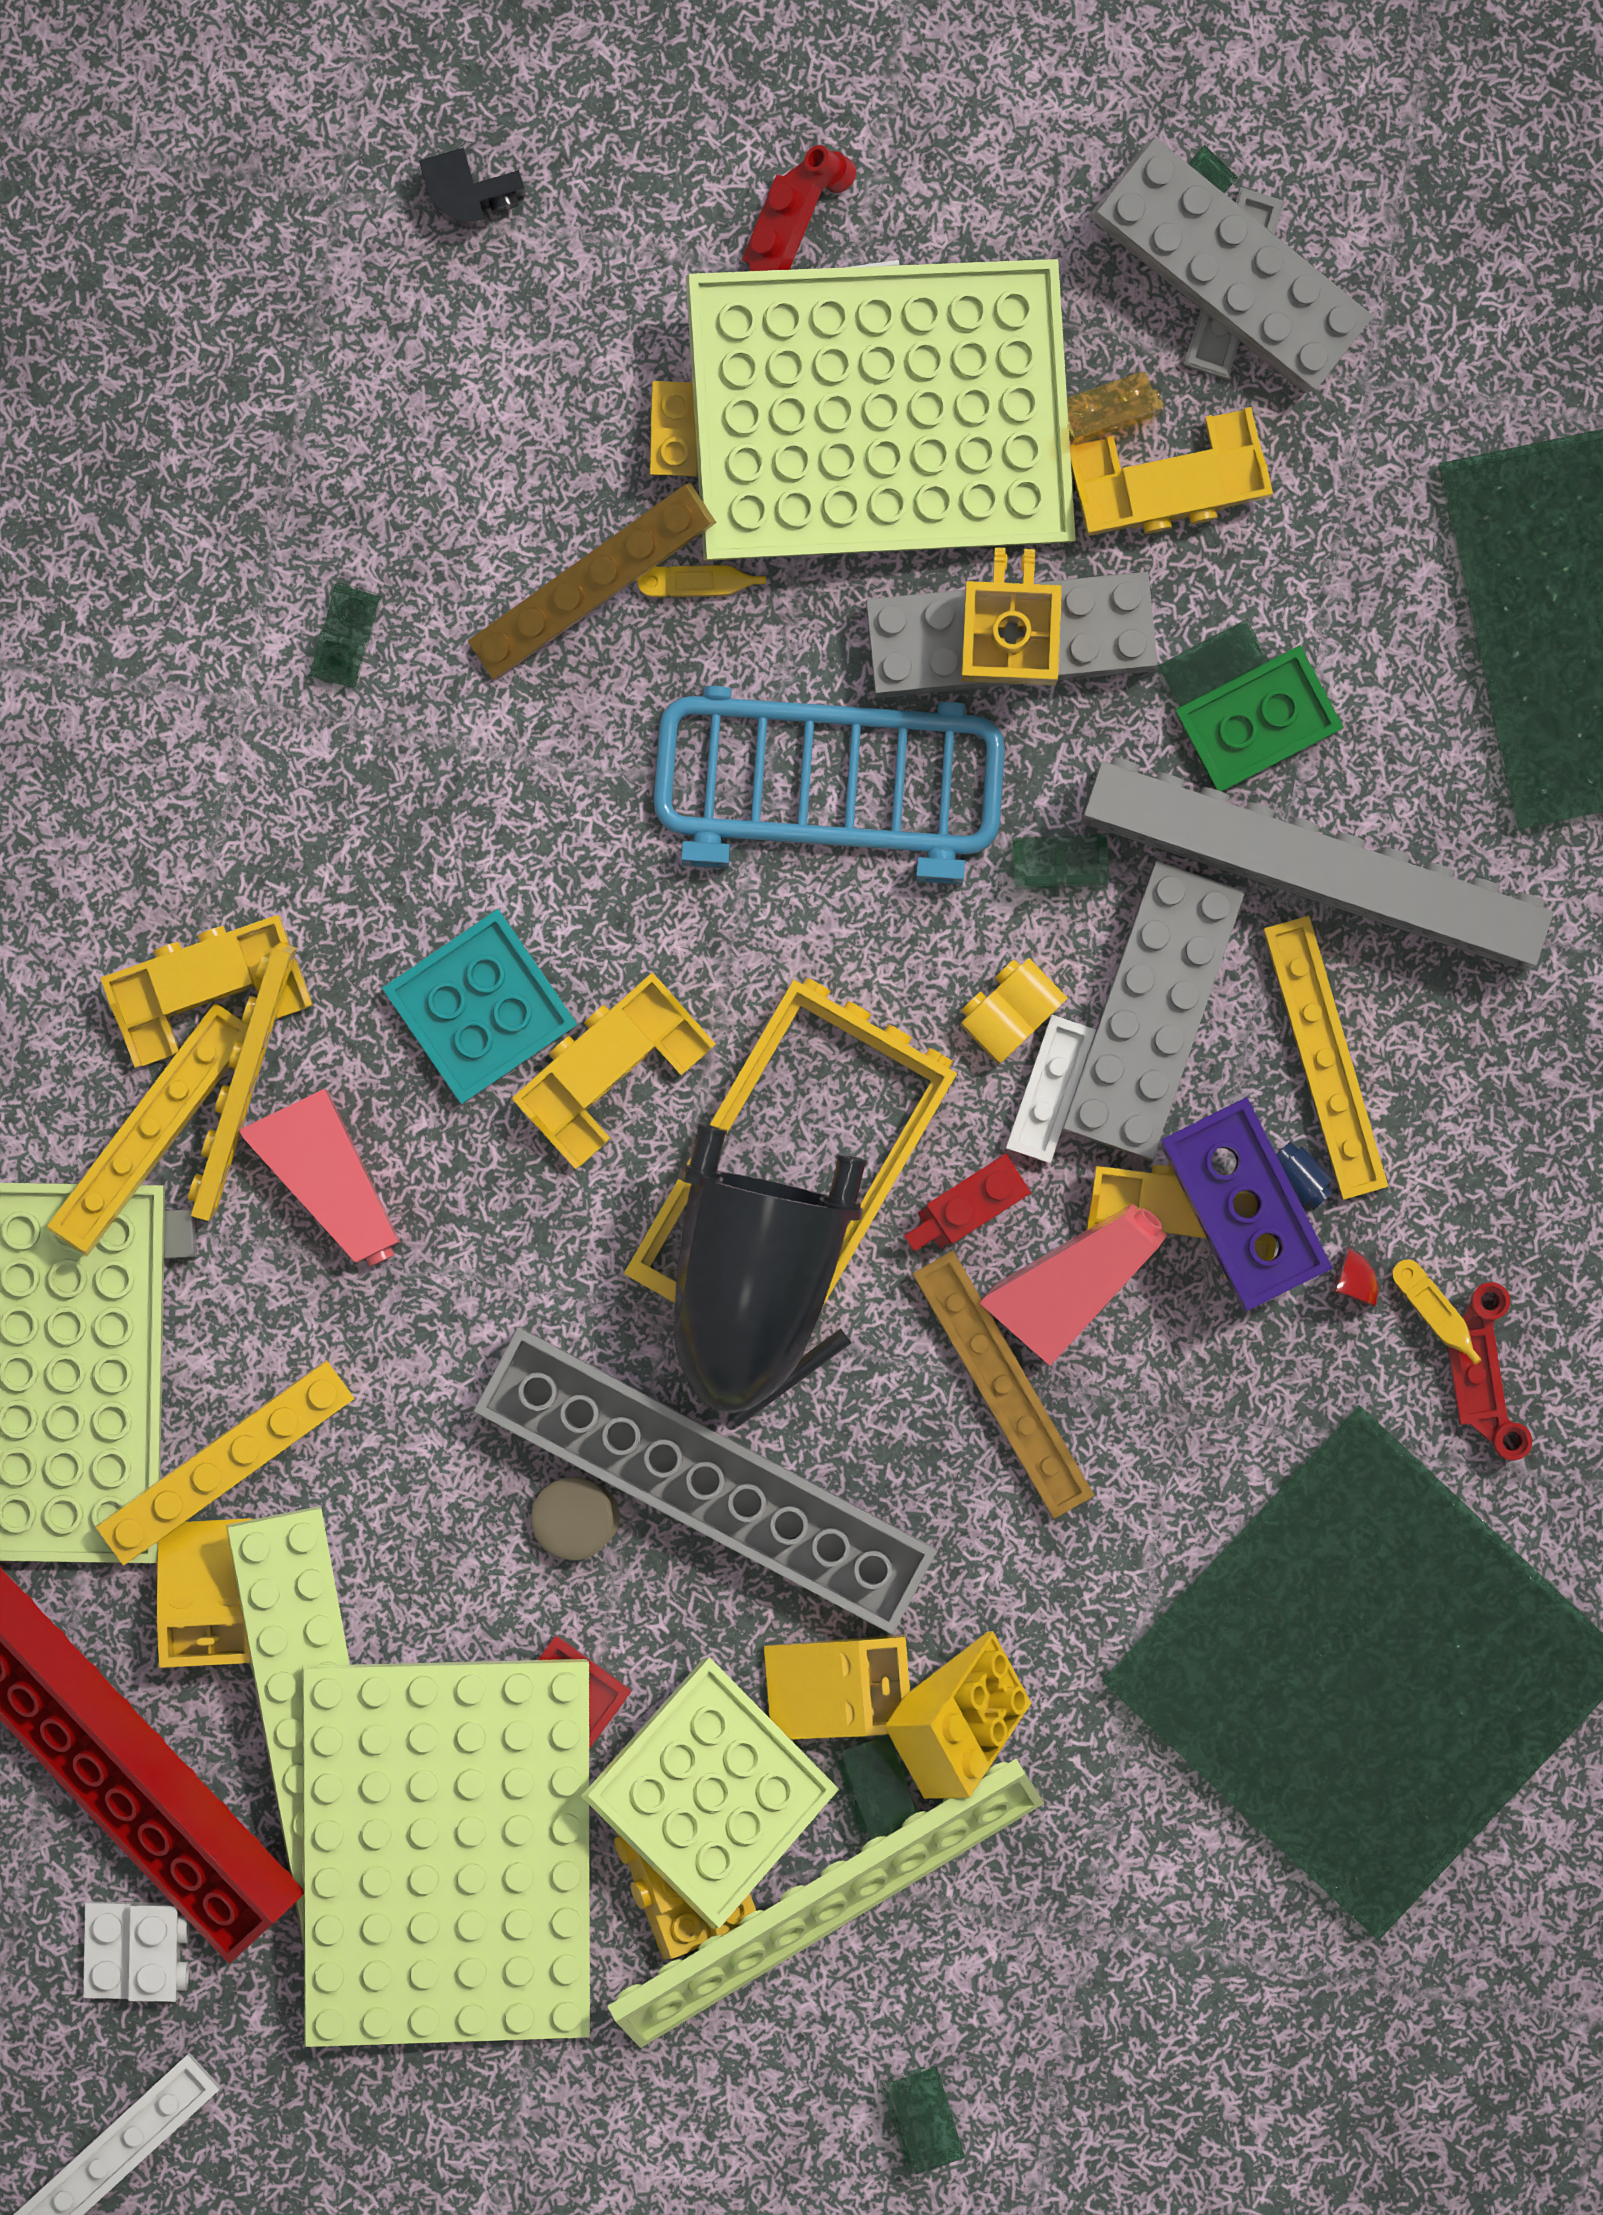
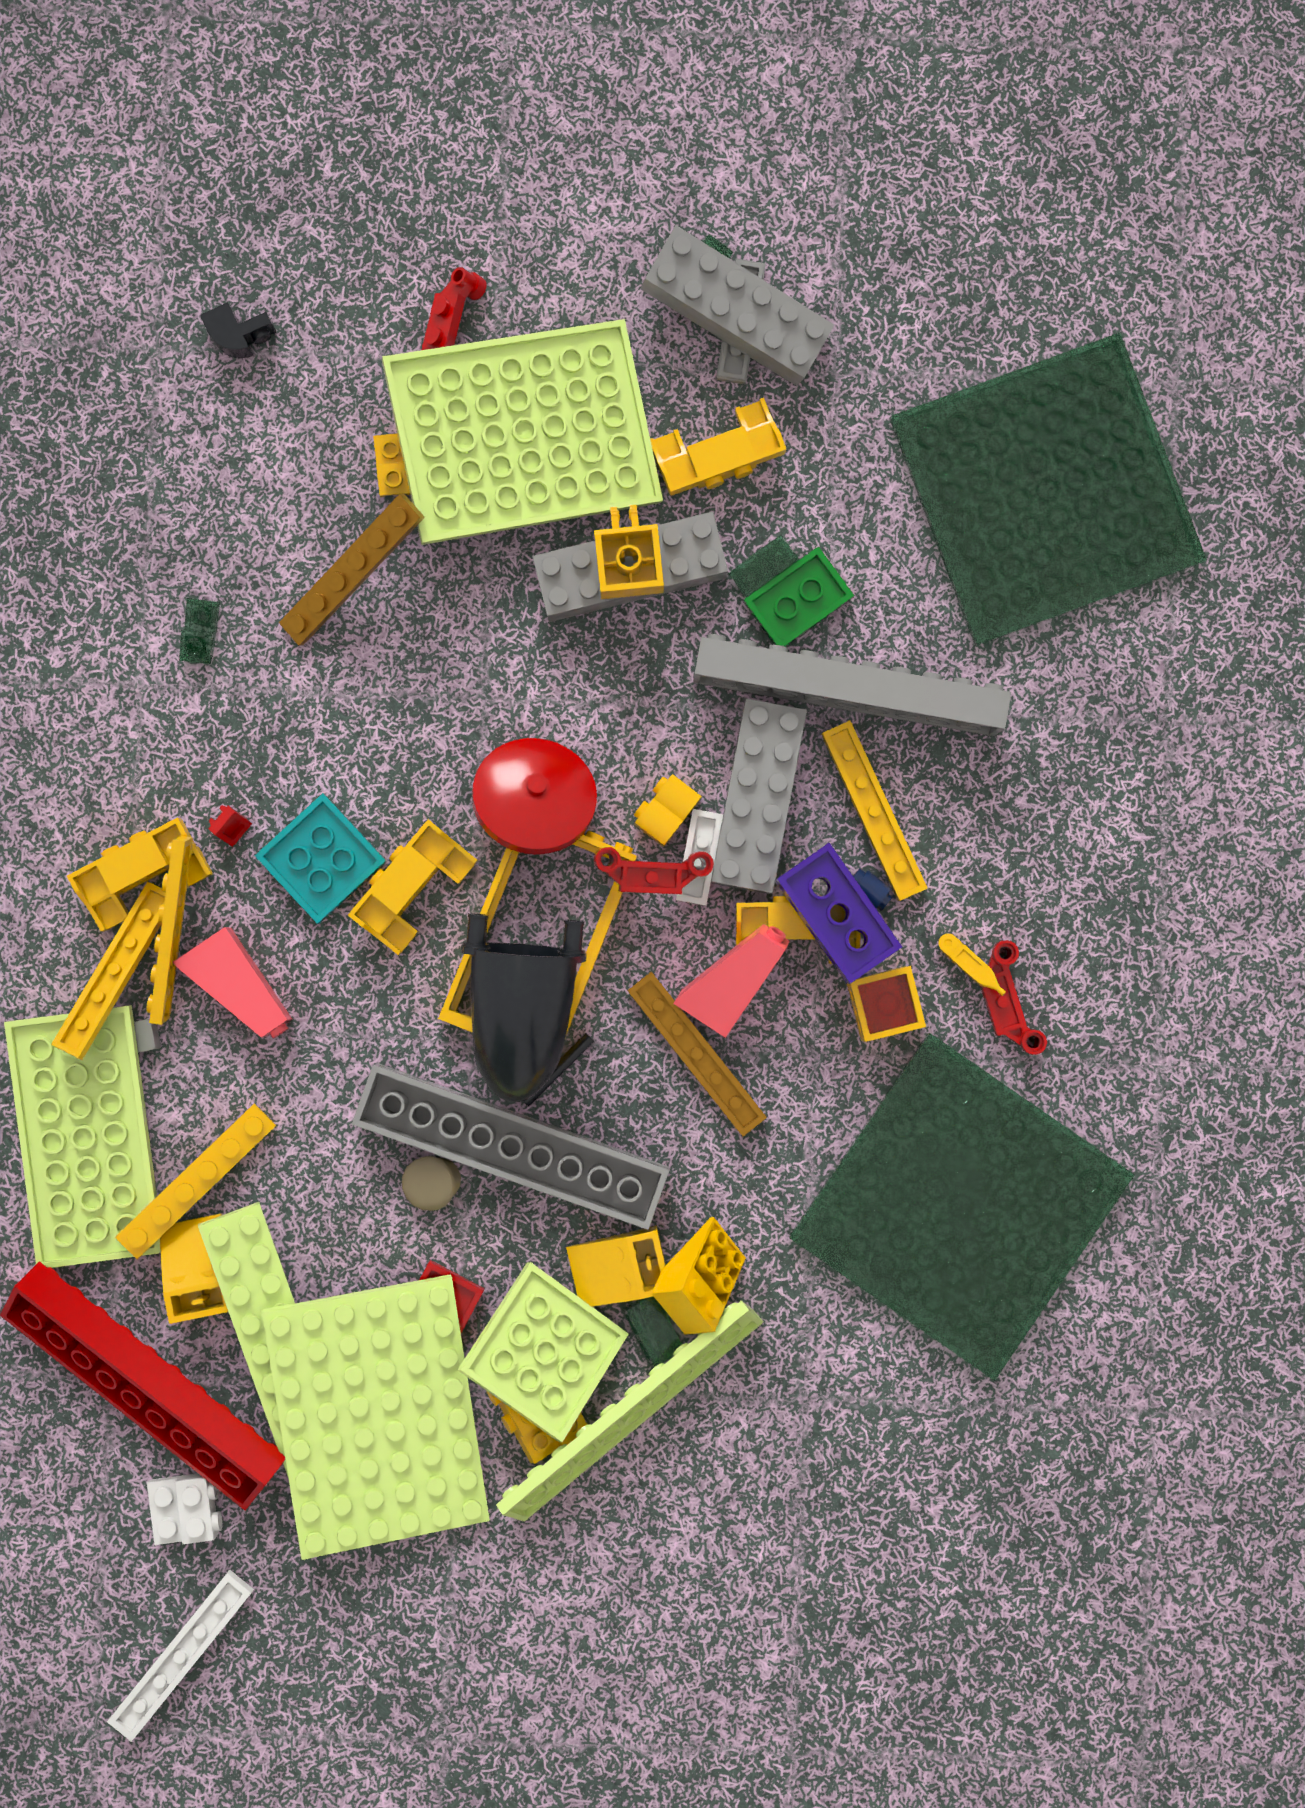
camera: 20 degrees left, 0 degrees up
(350, 936) = (229, 825): none -> red tile
(695, 581) = (420, 563): yellow piece -> none
(816, 960) = (534, 796): none -> red dish
(922, 2119) = (714, 1542): clear green hinge -> none
(941, 848) = (455, 736): dark azure bar -> none
(969, 1204) = (657, 940): red hinge -> none
(977, 1107) = (652, 876): none -> red plate
(1060, 861) = (684, 709): clear green hinge -> none
(1112, 408) = (674, 412): clear yellow bracket -> none
(1298, 1350) = (886, 1004): none -> piece
(1356, 1278) = (915, 951): red brick -> none

